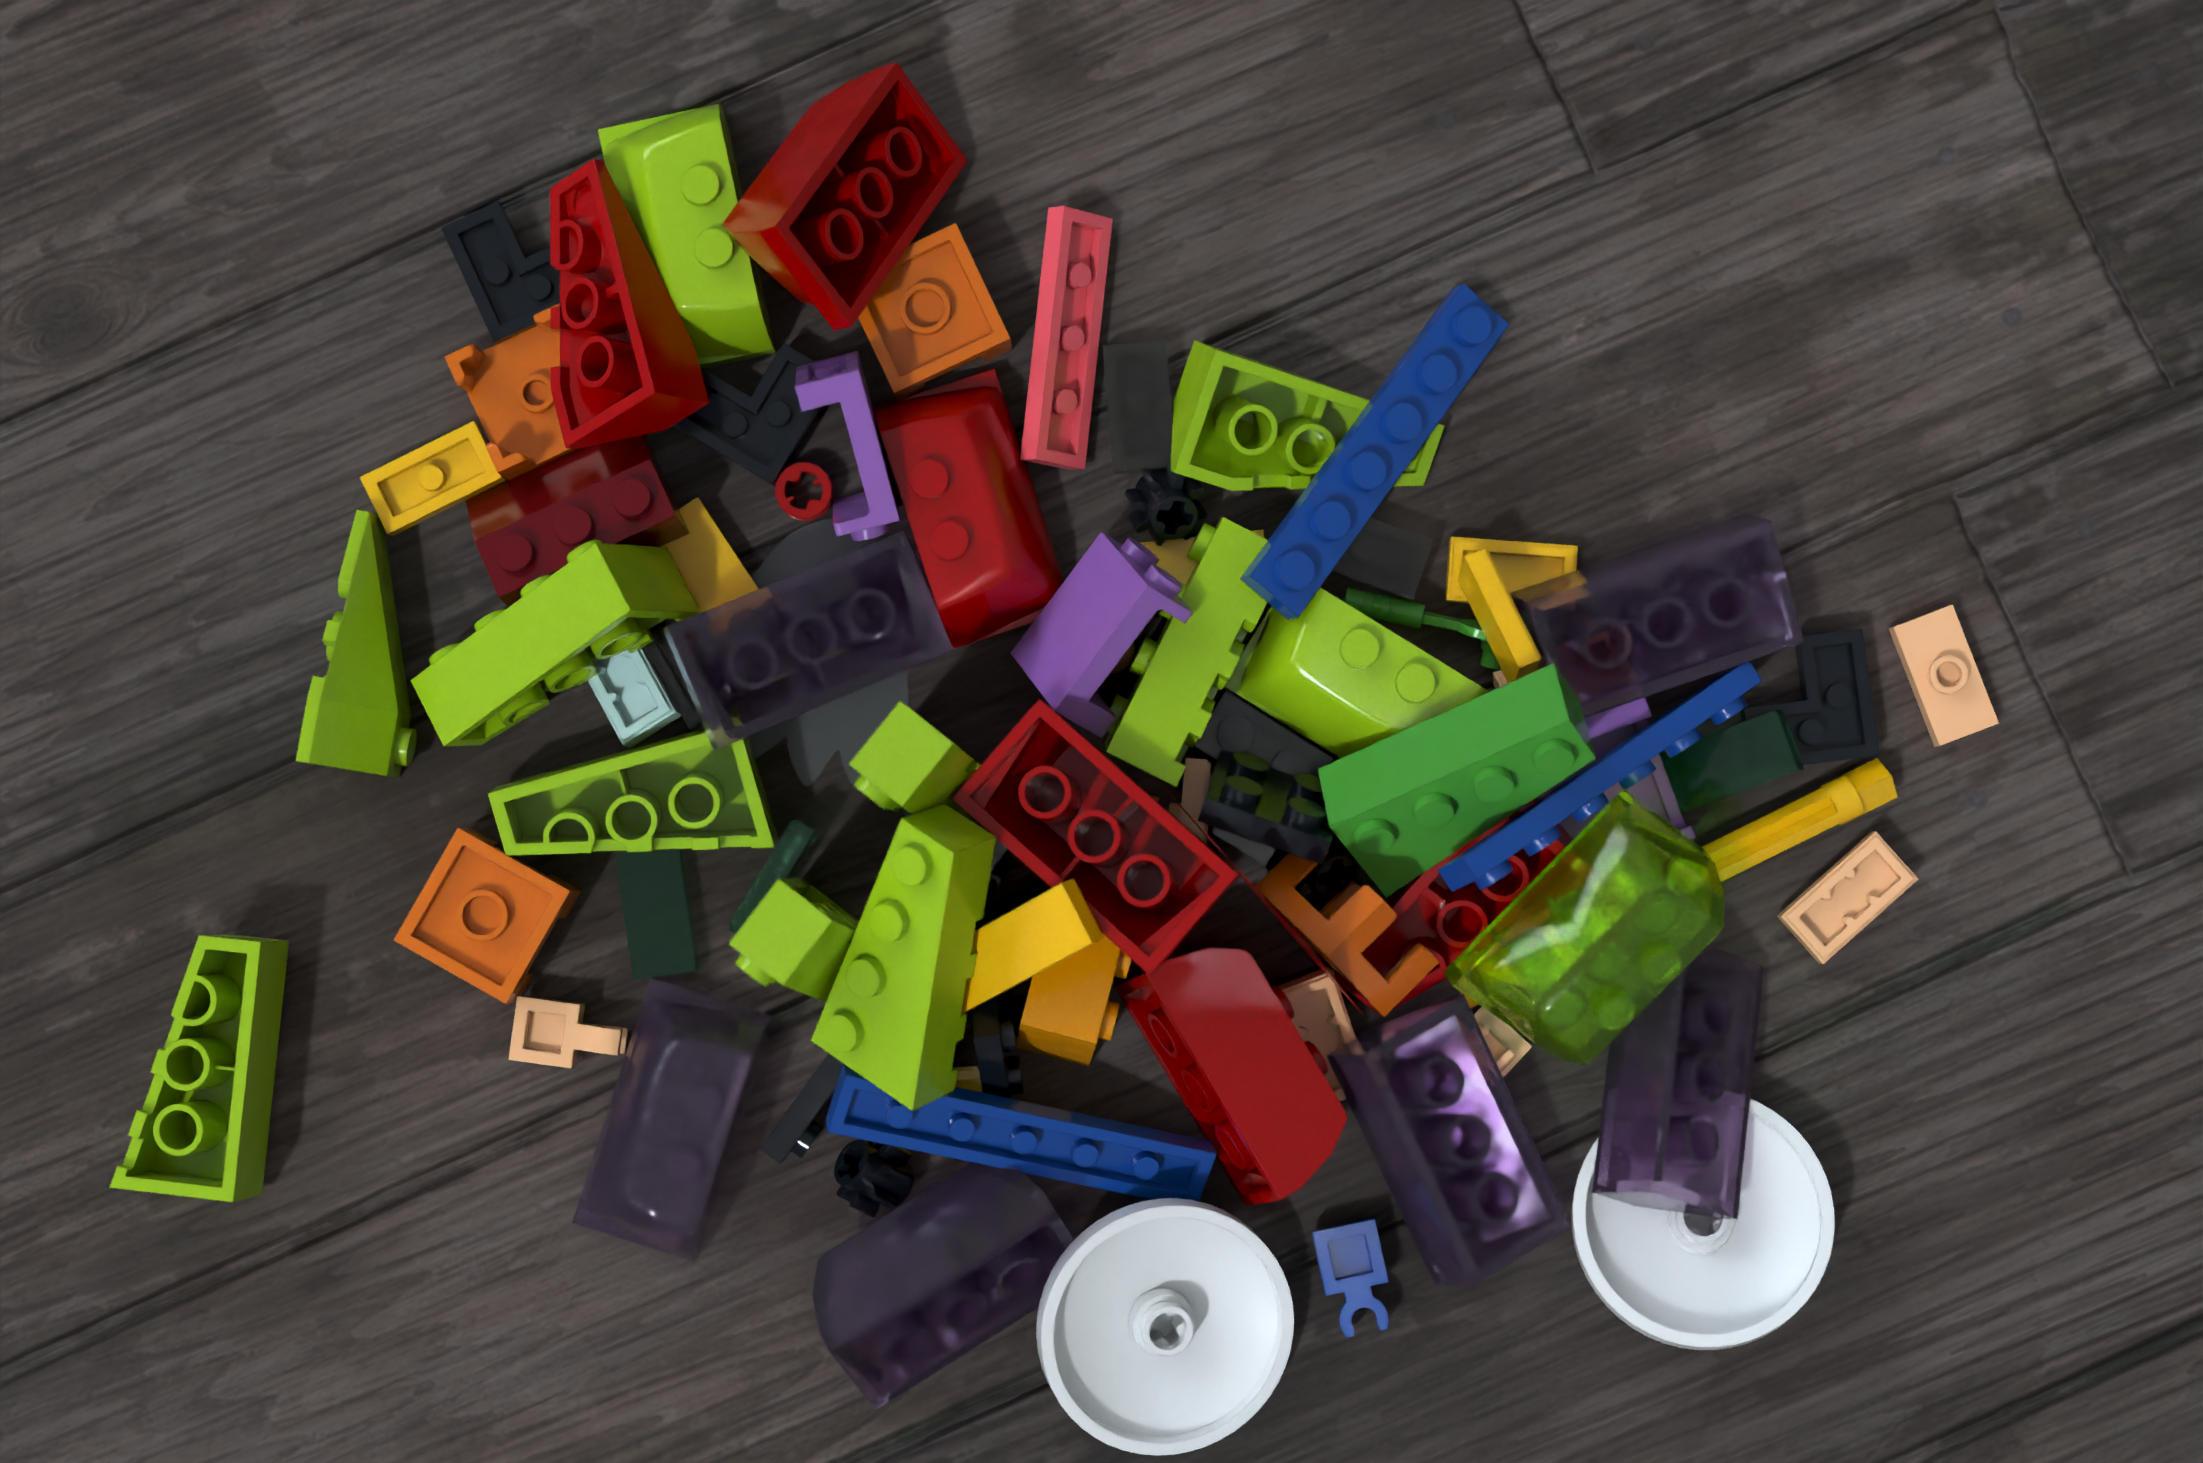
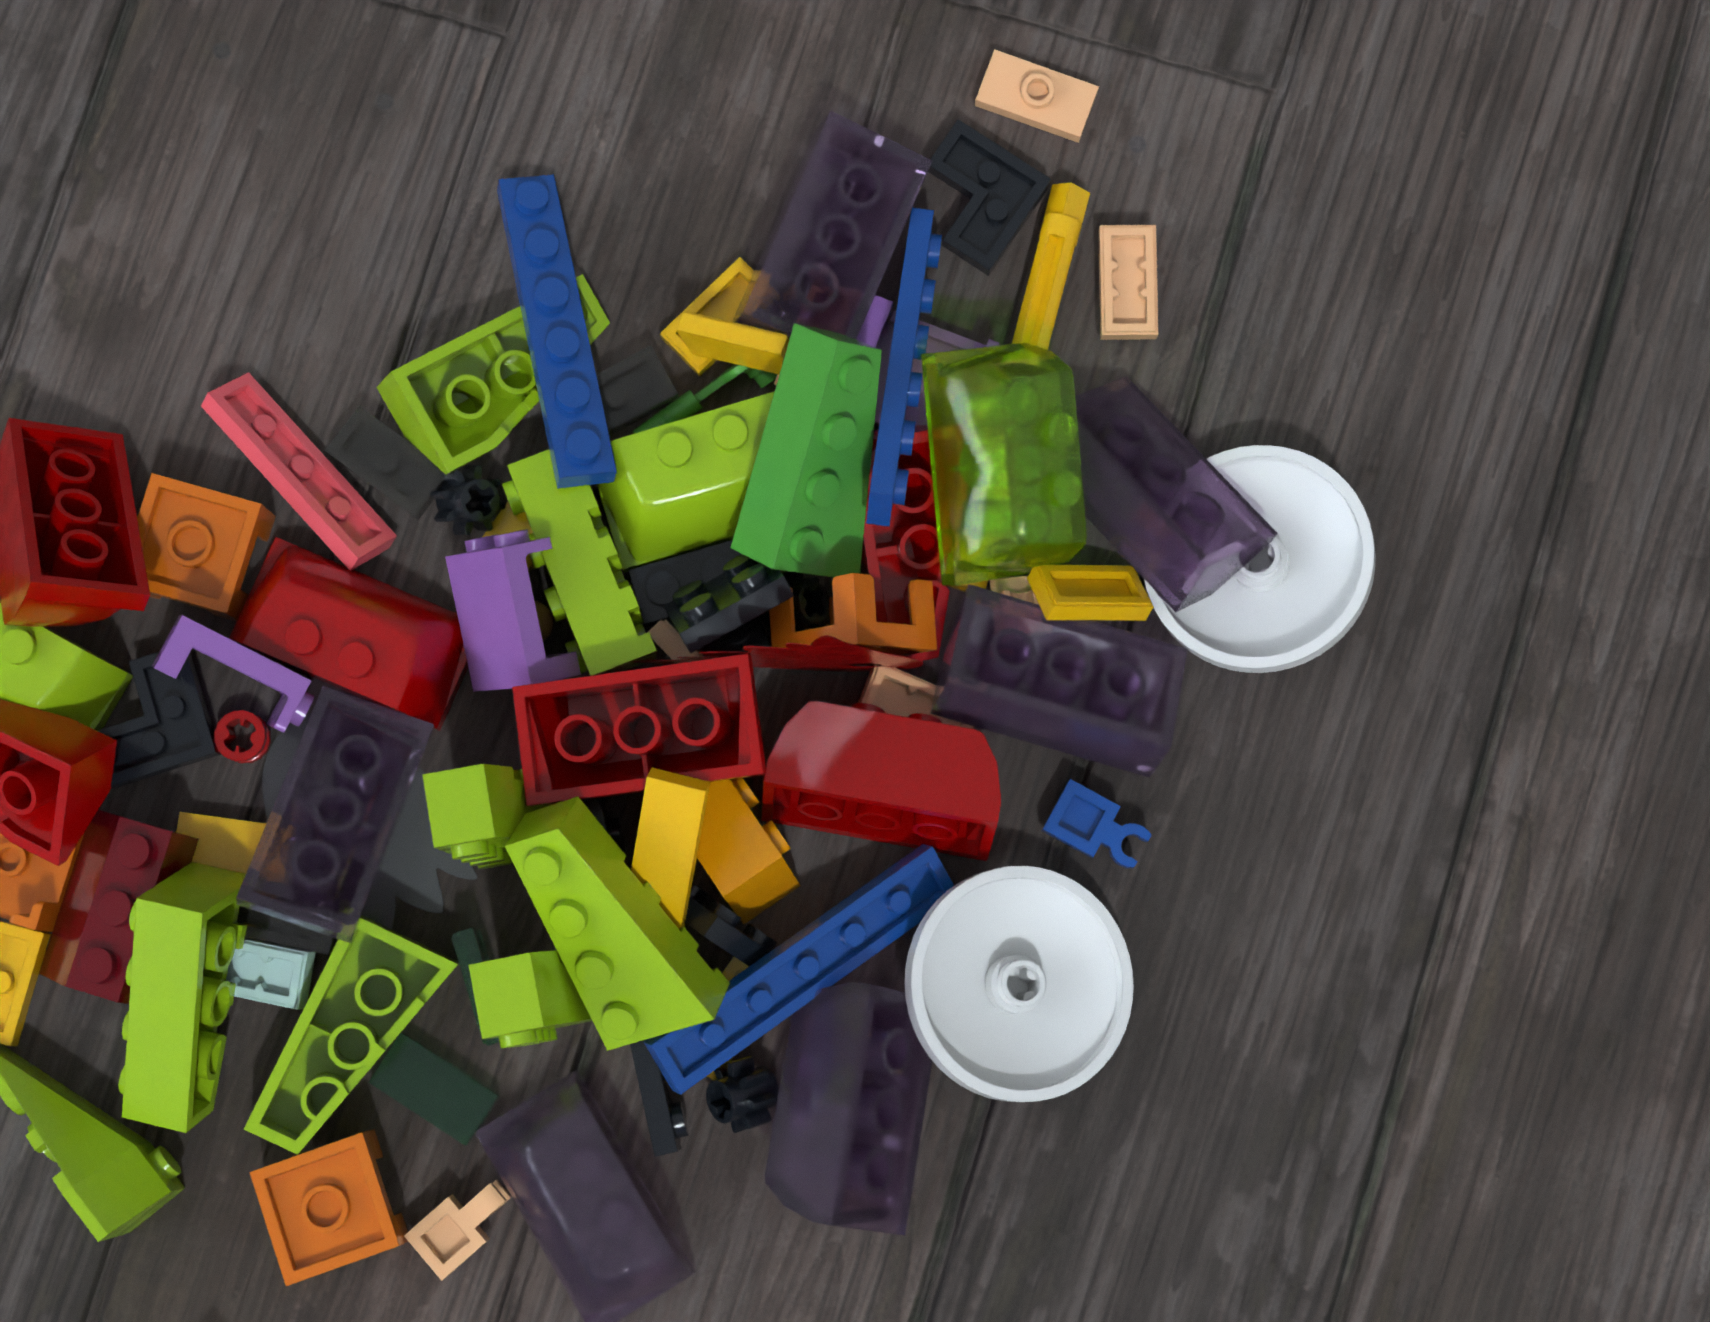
camera: 50 degrees left, 5 degrees down
(1547, 1100) = (1090, 592): none -> yellow tile
(1733, 761) = (970, 277): clear green tile -> none

